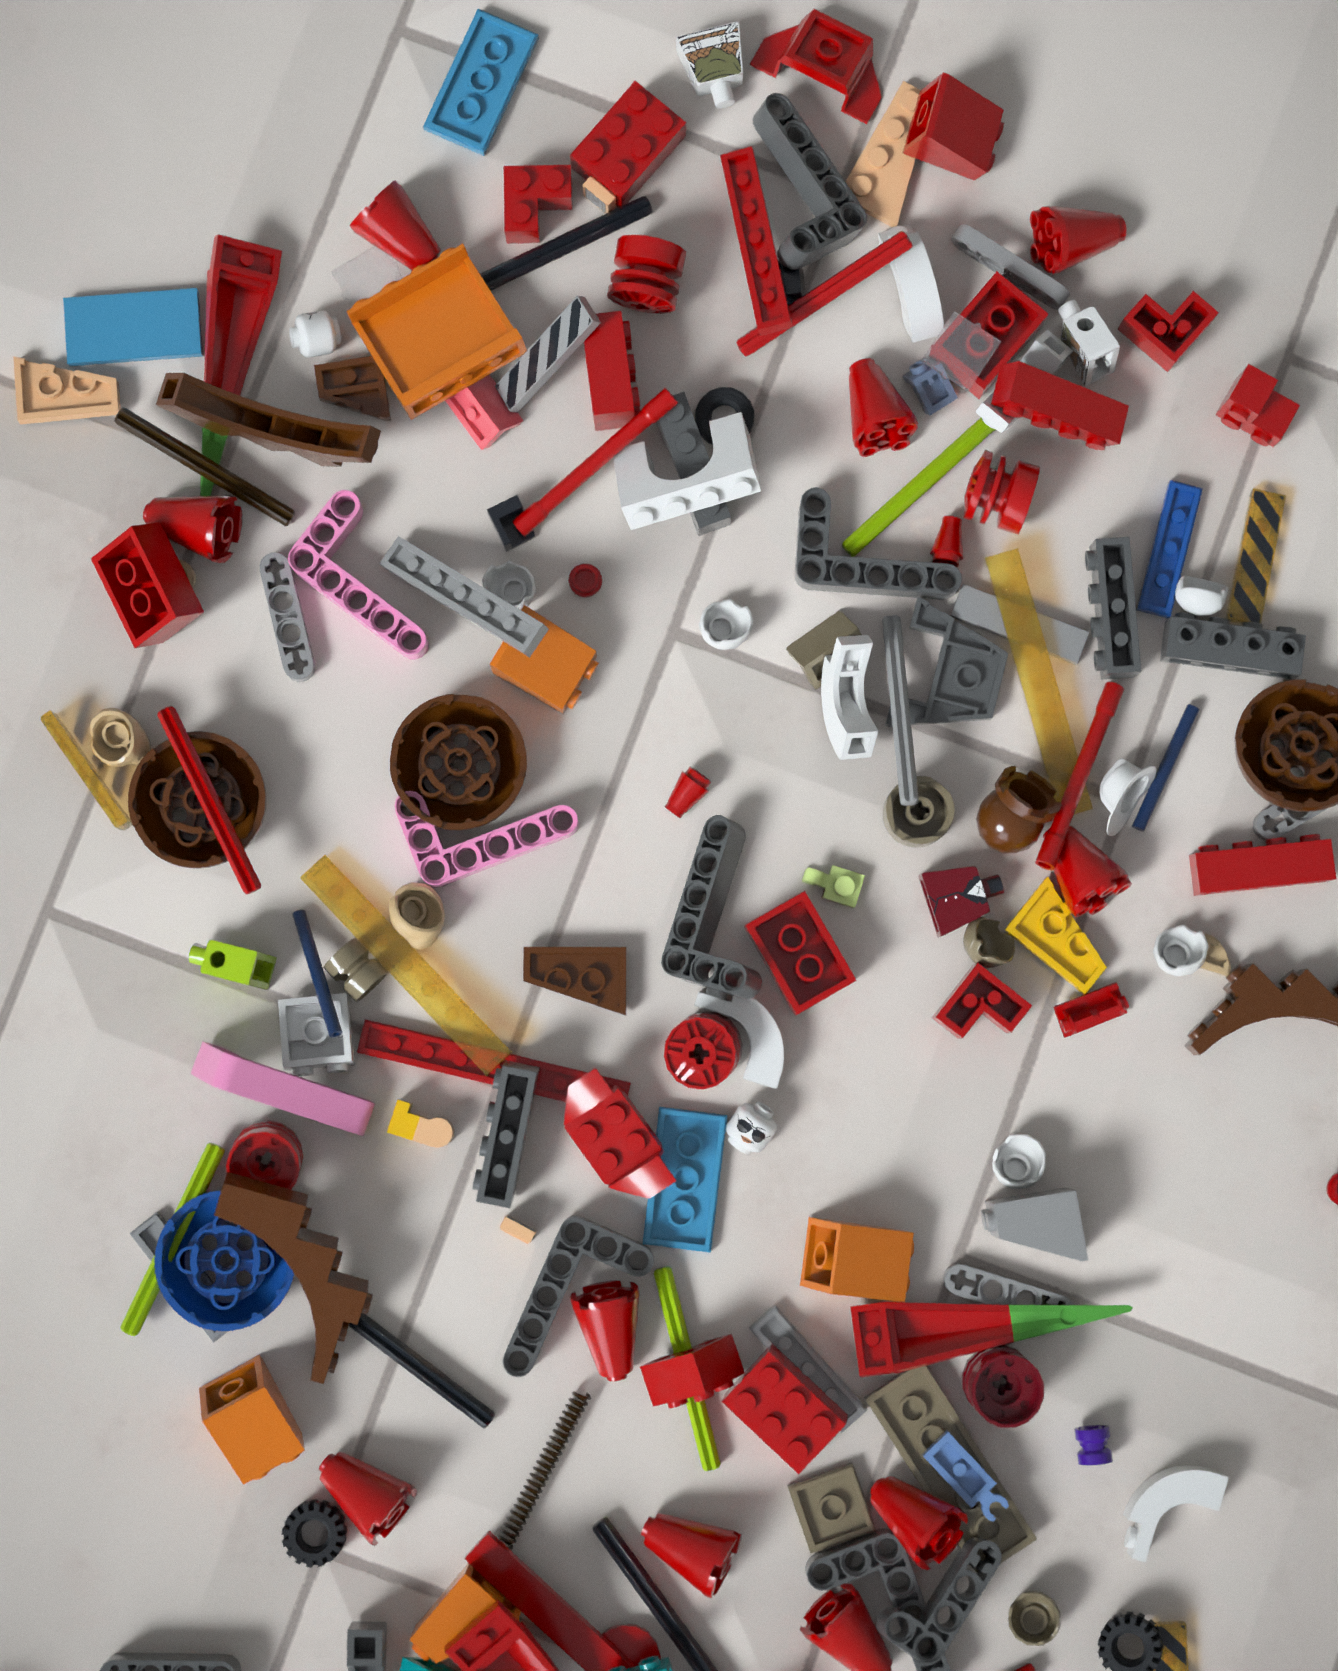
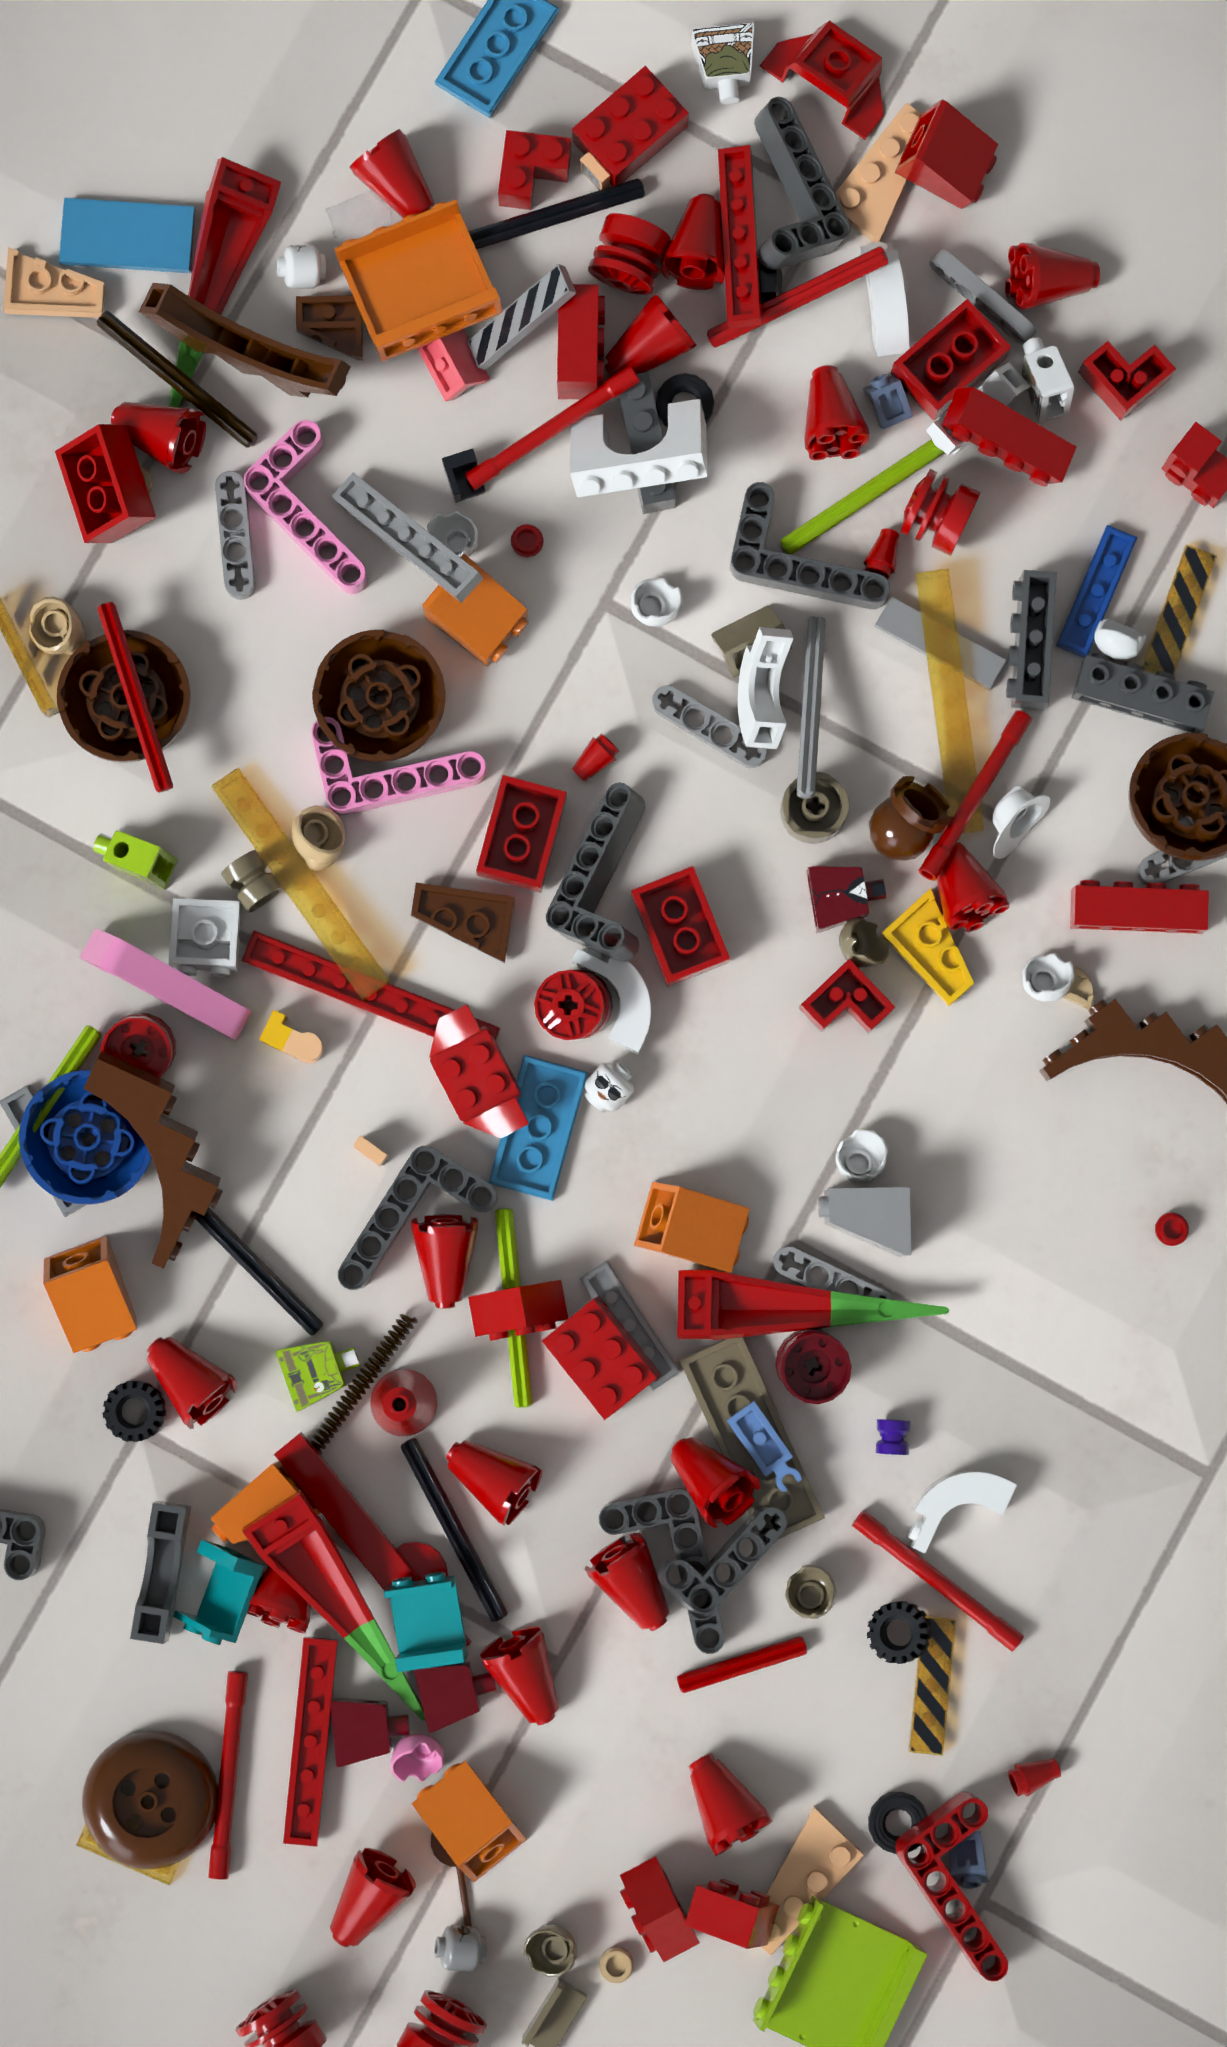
camera: 10 degrees right, 0 degrees up
(317, 973) = (214, 878): dark blue piece -> none
(493, 1465) = (315, 1371): none -> torso
(507, 1133) = (374, 1057): dark grey brick -> none
(593, 1470) = (419, 1399): none -> red cone
(624, 881) = (521, 833): none -> red brick
(680, 359) = (649, 340): none -> red cone
(714, 256) = (696, 246): none -> red cone
(795, 749) = (706, 730): none -> light grey beam
(831, 1508) = (632, 1461): dark tan tile -> none
(839, 885) = (729, 868): yellowish green plate -> none
(961, 351) = (920, 370): clear piece -> none
(965, 673) = (880, 683): dark grey wing -> none
(1091, 1009) = (953, 1022): red hinge -> none
(1165, 767) = (1061, 801): dark blue piece -> none
(1225, 1622) = (881, 1536): none -> red piece

